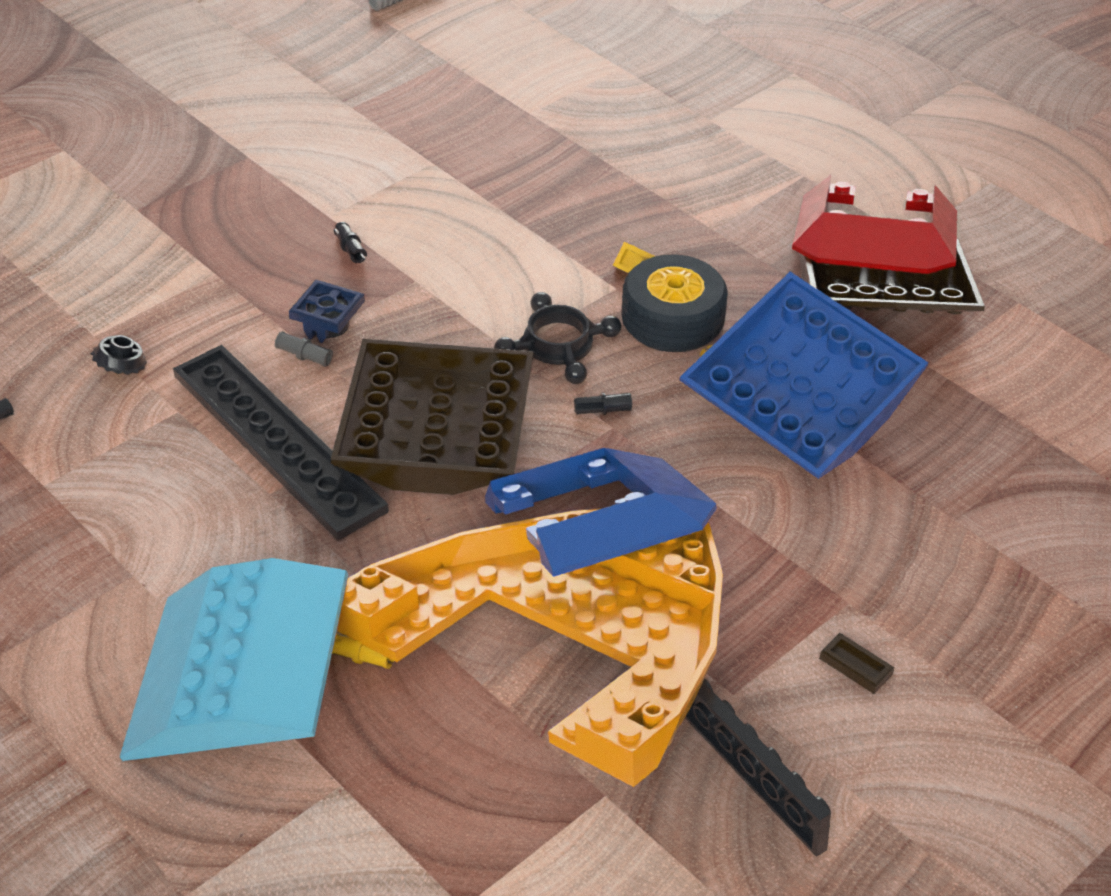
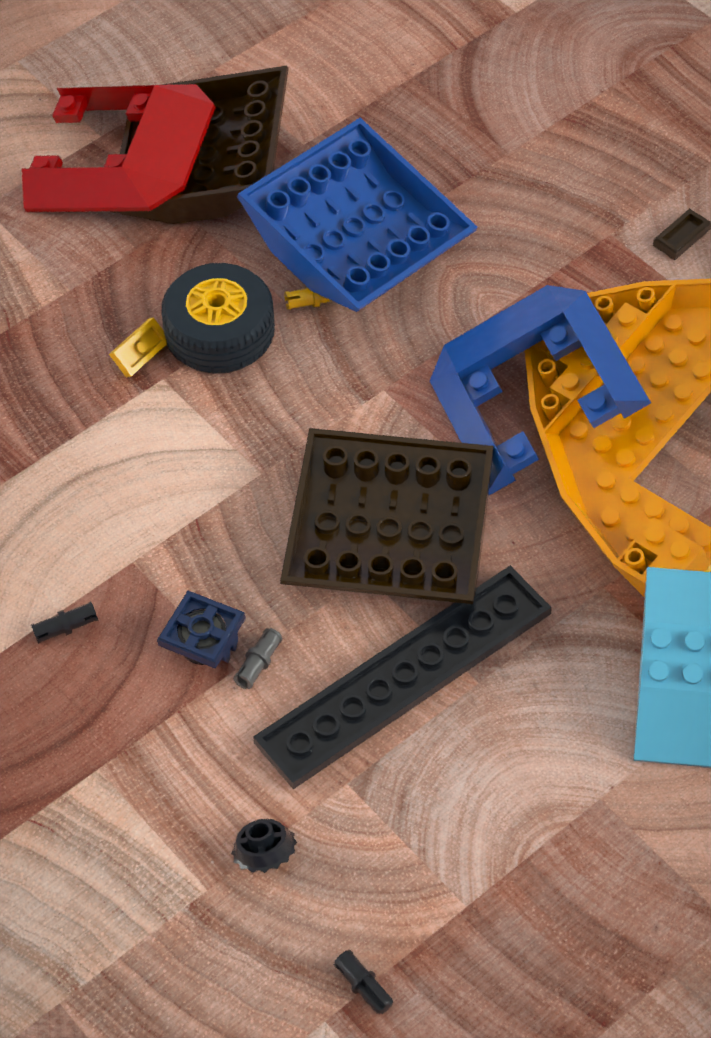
camera: 85 degrees left, 10 degrees up
(560, 353) = (248, 450): black piece -> none
(603, 403) = (357, 390): black axle -> none

